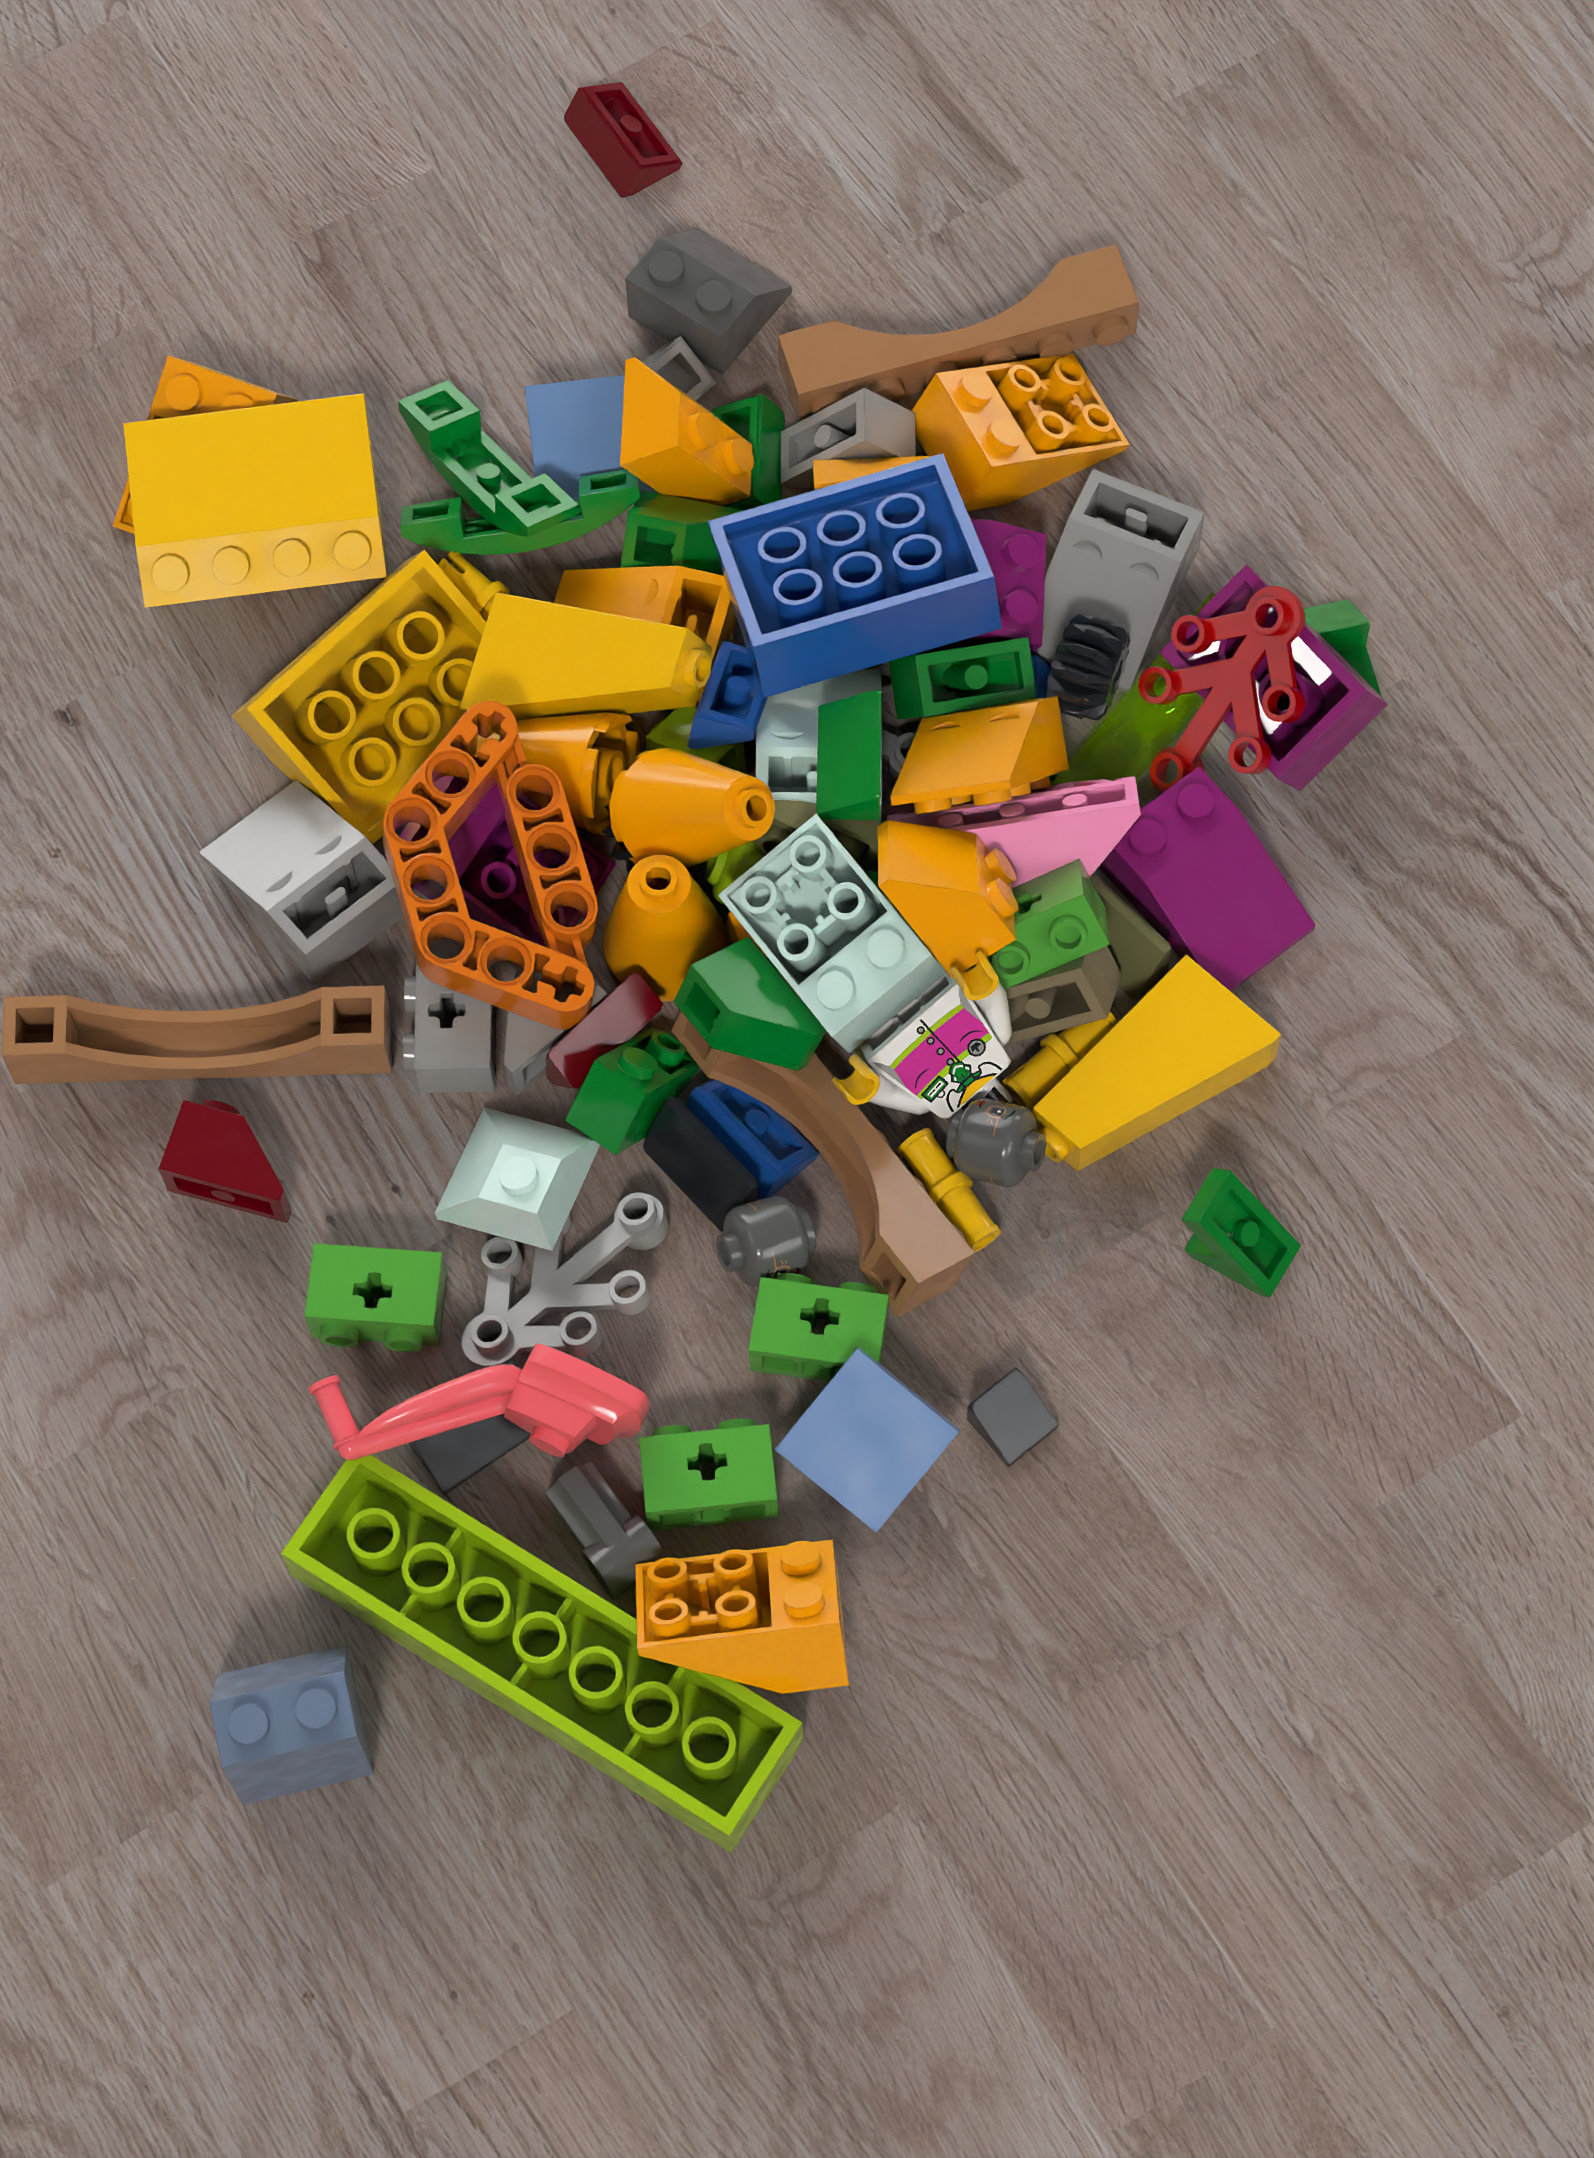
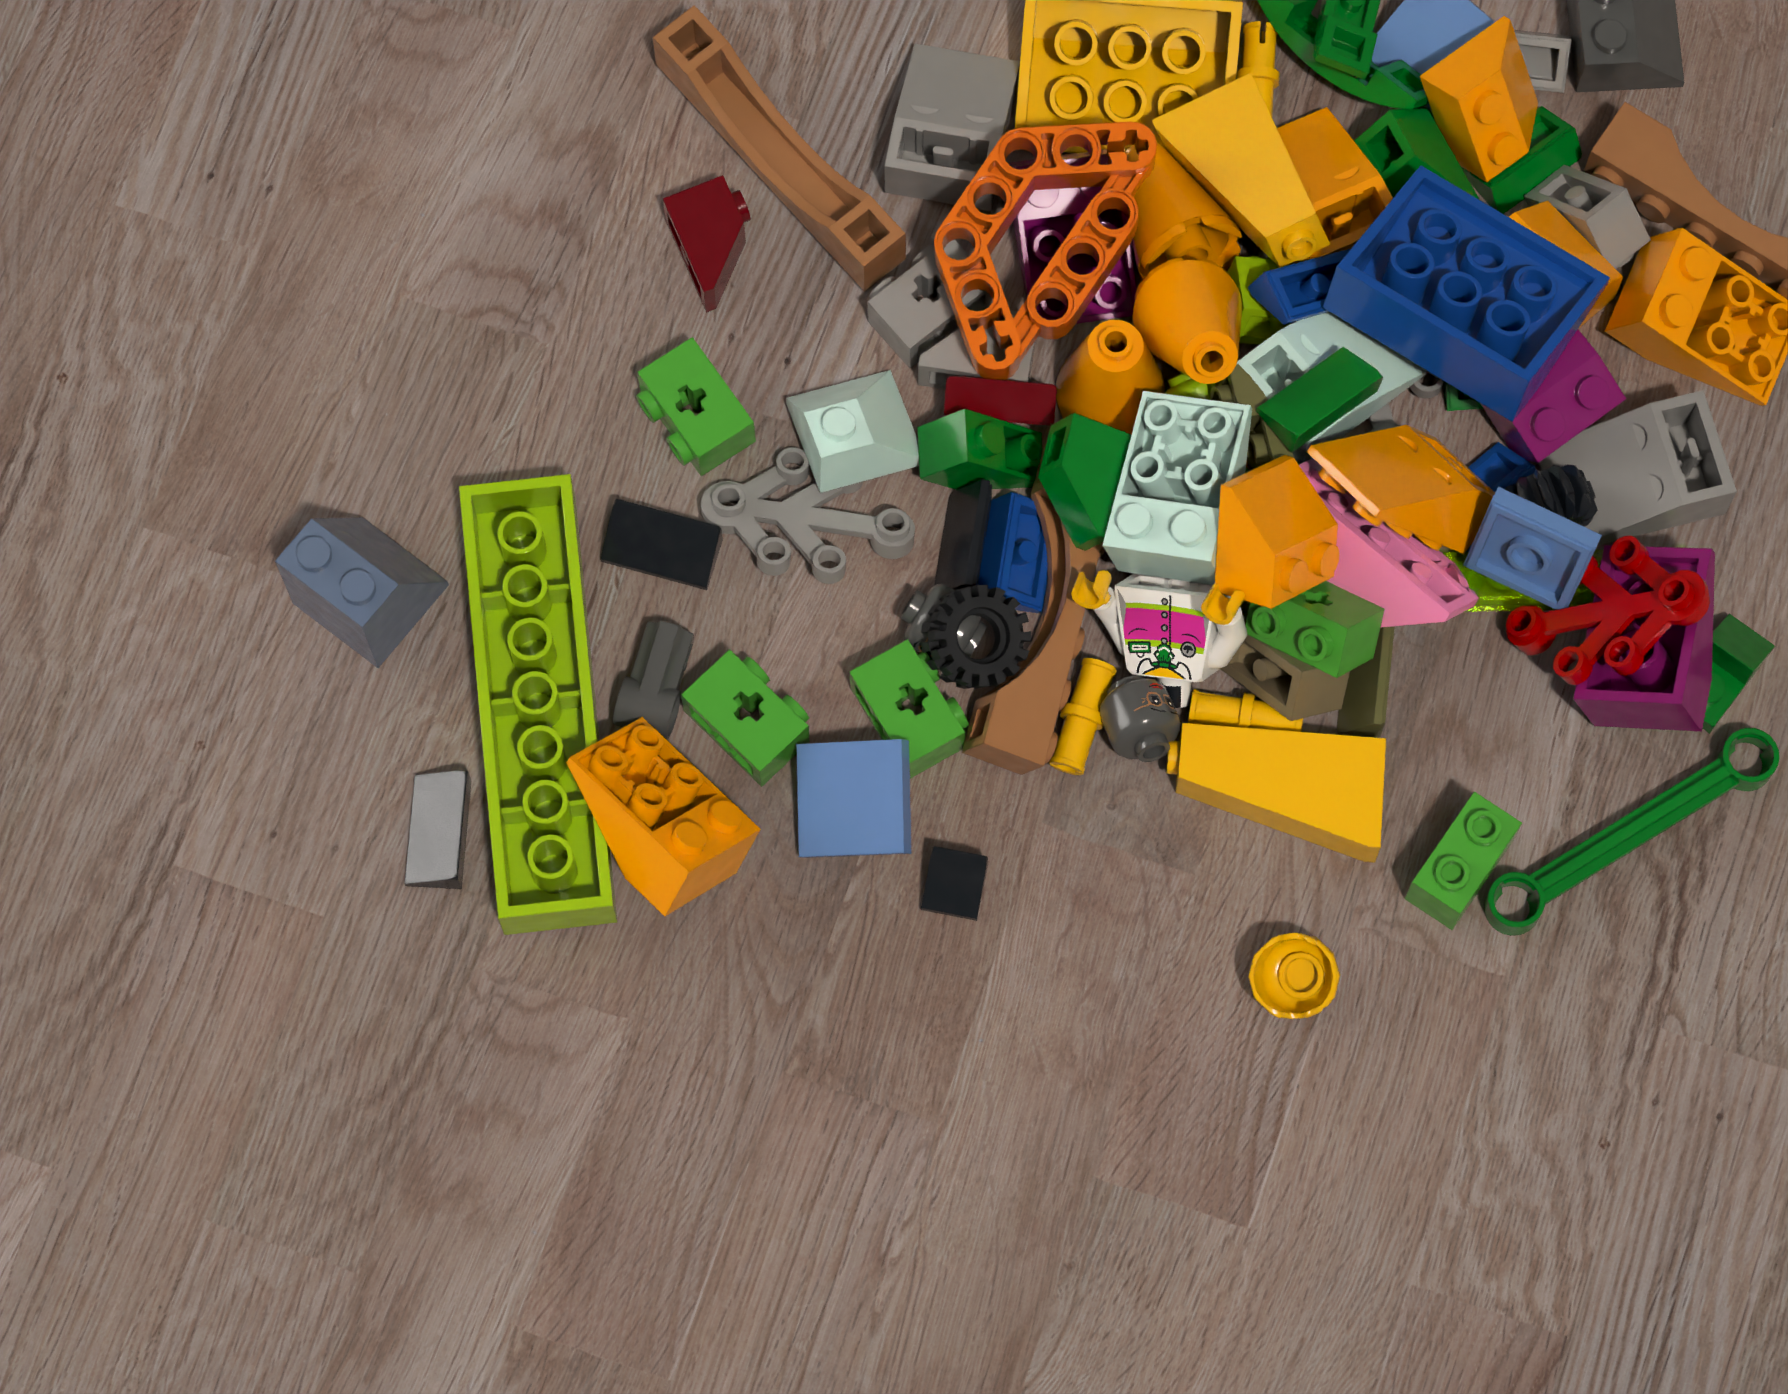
camera: 50 degrees right, 5 degrees up
(550, 1398) = (704, 561): coral piece -> none
(581, 1835) = (438, 830): none -> slope
(833, 1194) = (1007, 628): none -> black tyre
(962, 678) = (1465, 431): green slope -> none
(1124, 704) = (1532, 549): none -> medium blue tile
(1207, 882) = (1460, 713): magenta slope -> none
(1238, 1234) = (1211, 932): green slope -> none
(1335, 1195) = (1294, 976): none -> yellow hair
(1342, 981) = (1463, 860): none -> bright green brick
(1420, 833) = (1632, 831): none -> green piece

